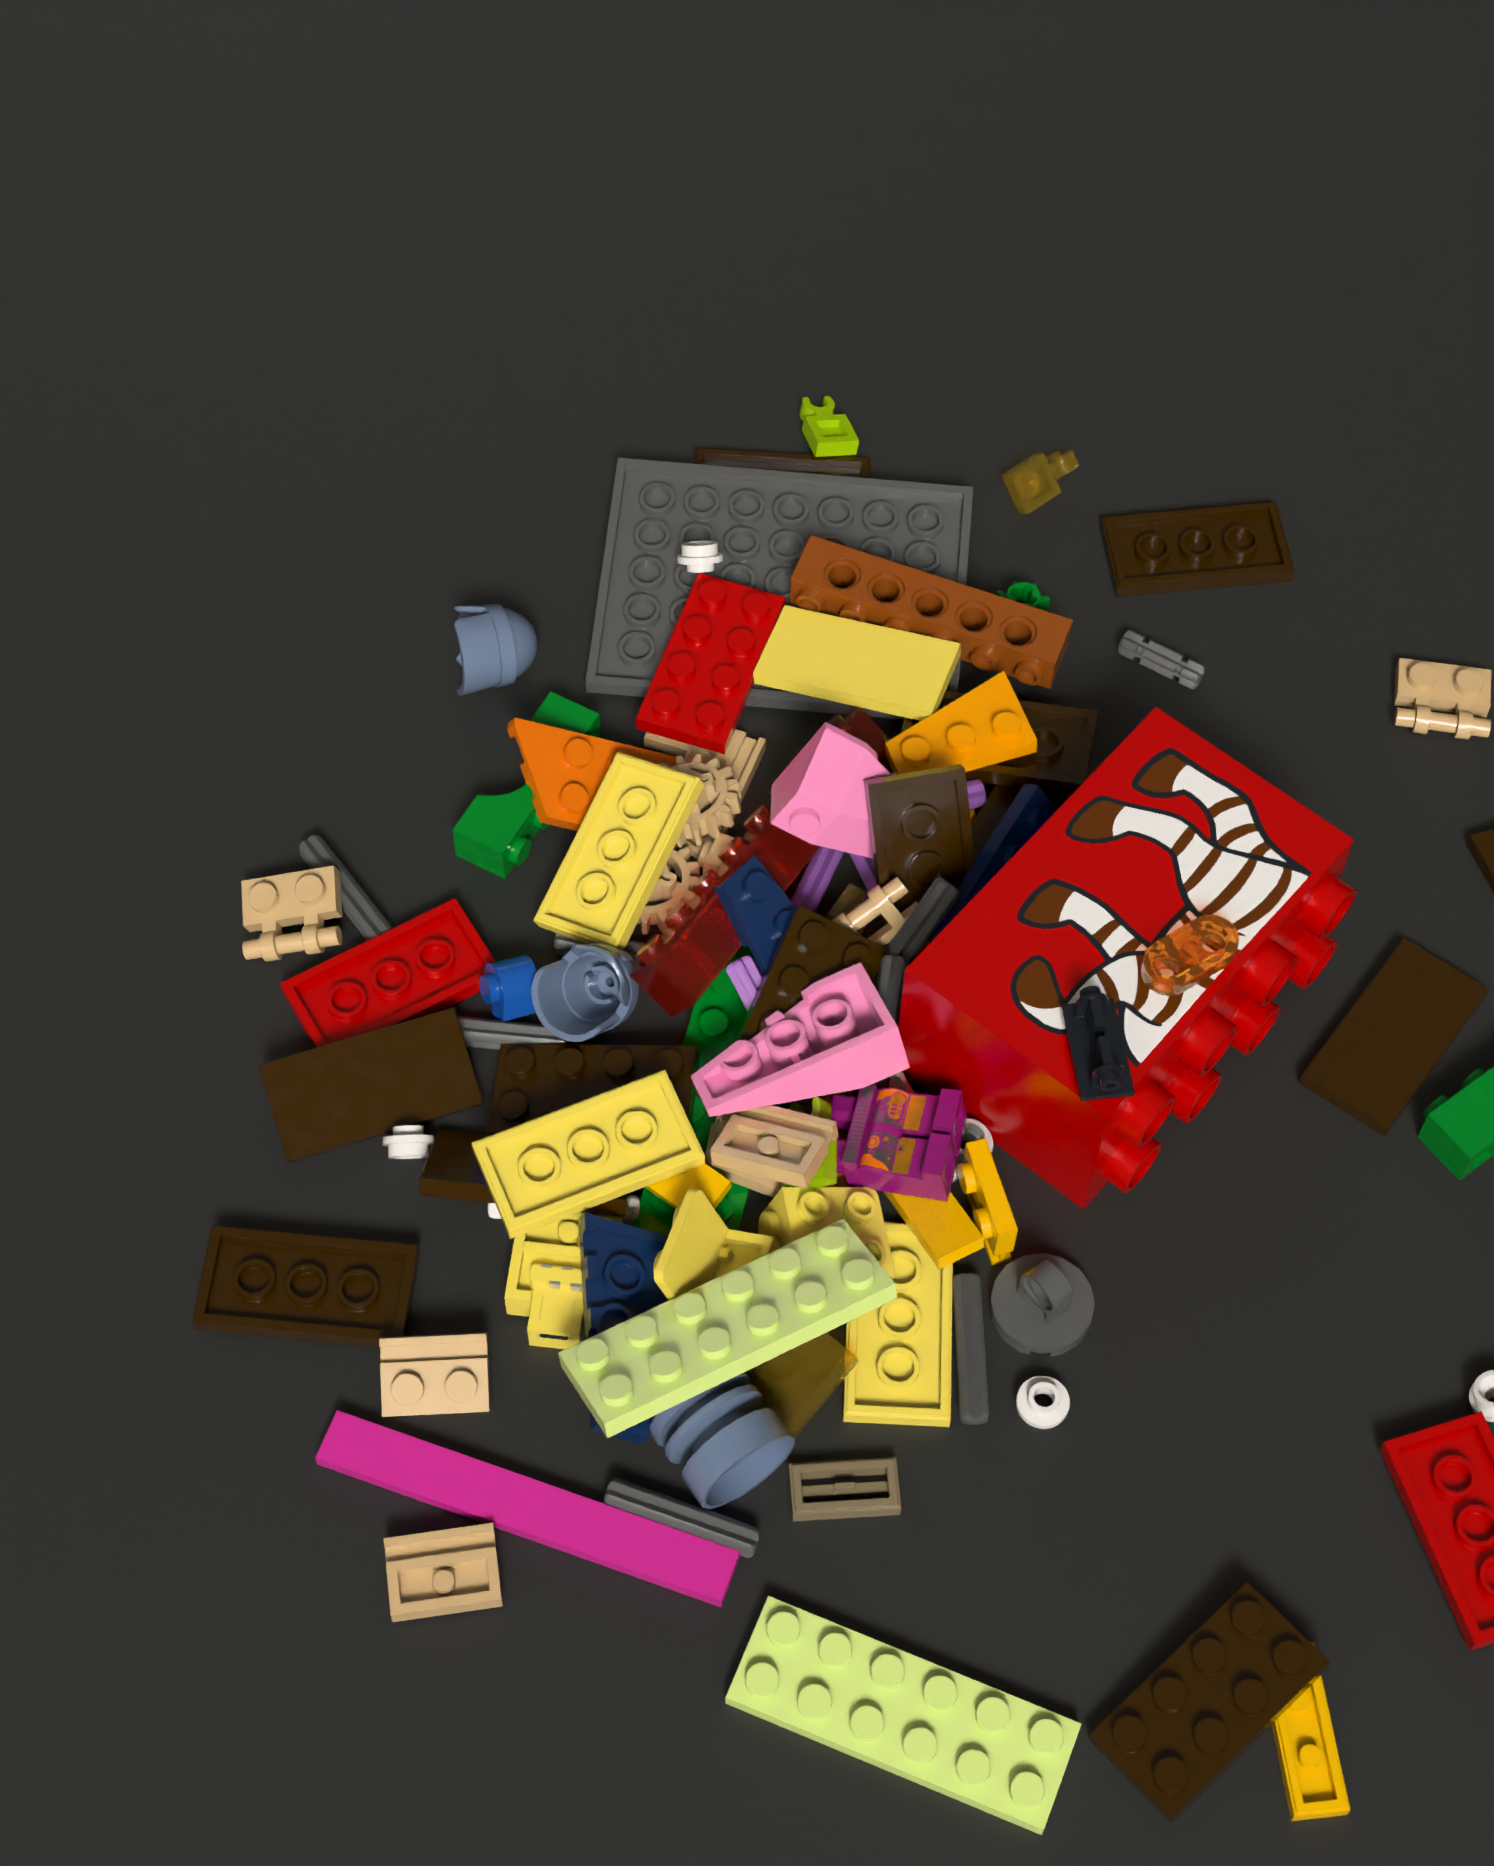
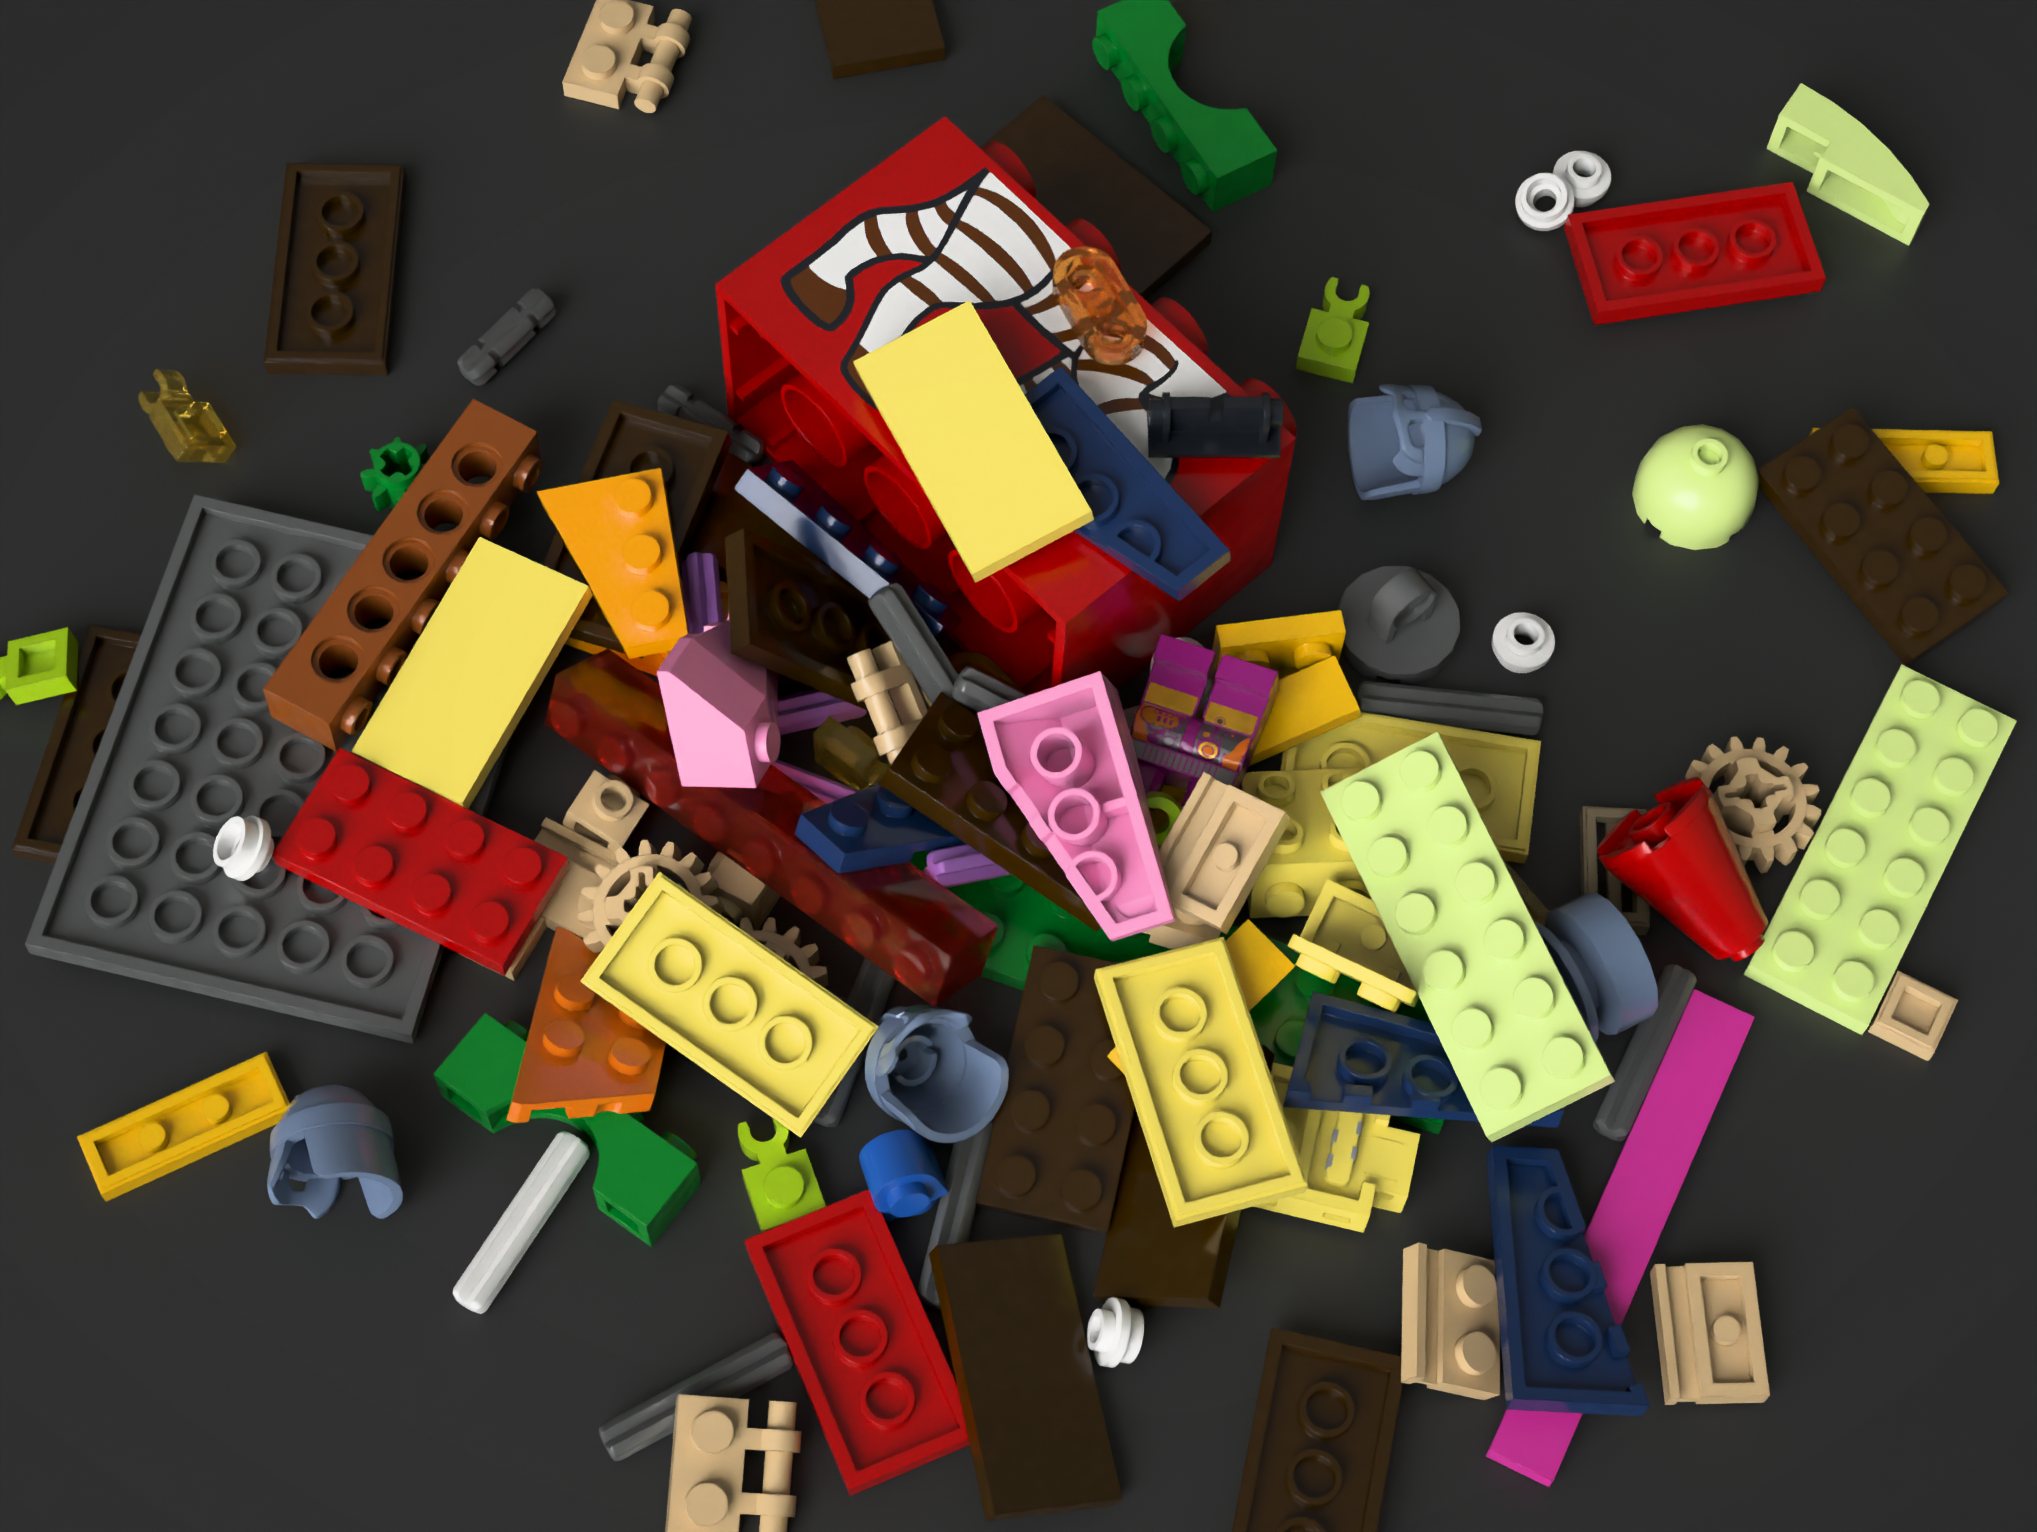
camera: 85 degrees left, 5 degrees up
(449, 1441) = (1551, 1299): none -> dark blue wing
(456, 769) = (521, 1222): none -> white axle
(506, 924) = (781, 1183): none -> lime plate
(512, 576) = (184, 1126): none -> yellow tile
(745, 1742) = (1913, 1015): none -> tan tile
(766, 765) = (606, 811): none -> tan plate
(832, 1528) = (1688, 870): none -> red cone
(936, 1579) = (1755, 798): none -> tan gear
(1031, 962) = (1132, 505): none -> dark blue wing
(1038, 875) = (973, 441): none -> light yellow tile
(1207, 1290) = (1408, 441): none -> sand blue helmet
(1227, 1540) = (1696, 486): none -> yellowish green cylinder
(1309, 1238) = (1335, 336): none -> lime plate

